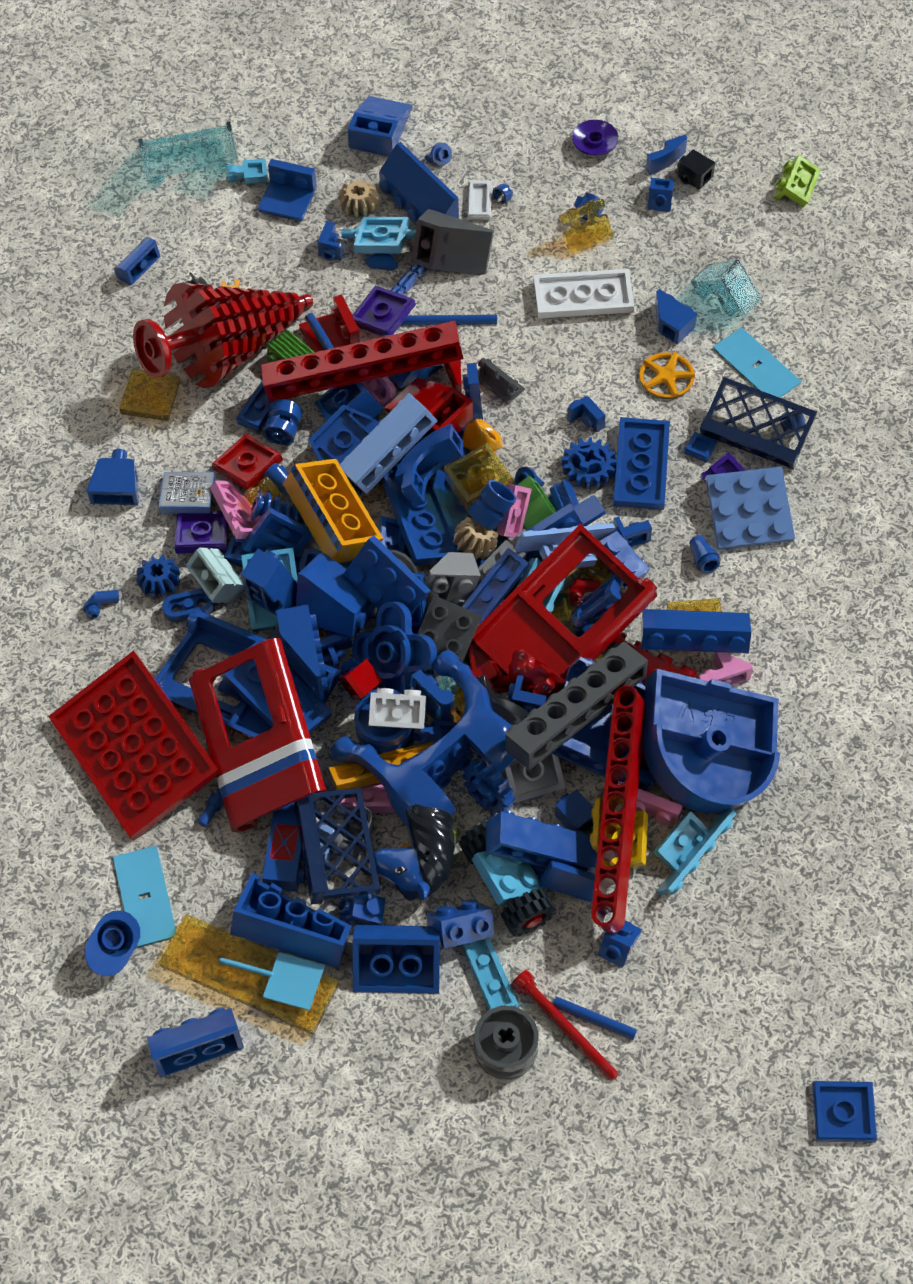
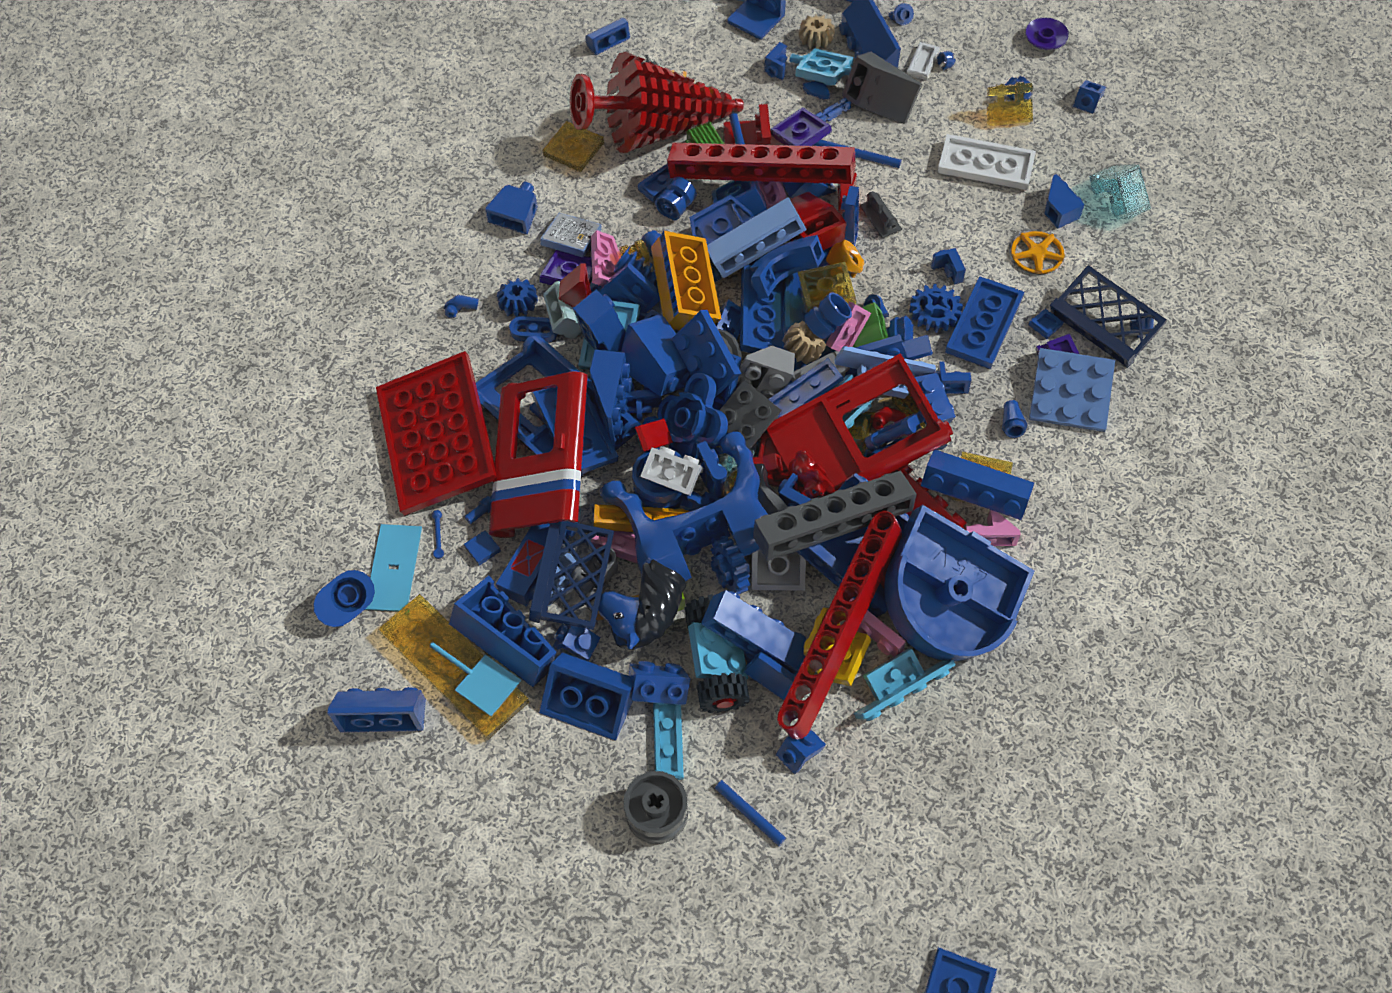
camera: 20 degrees right, 0 degrees up
(185, 867) = (438, 552): none -> blue hinge
(222, 552) = (575, 286): none -> red slope
(228, 847) = (482, 547): none -> blue tile
(246, 461) = (632, 223): red plate -> none
(525, 984) = (696, 758): red piece -> none
(574, 811) = (802, 614): blue brick -> none
(672, 151) = (1102, 66): blue slope -> none
(695, 169) = (1130, 82): black brick -> none
(744, 351) = (1118, 250): medium azure piece -> none
(797, 180) = (1223, 115): lime bracket -> none

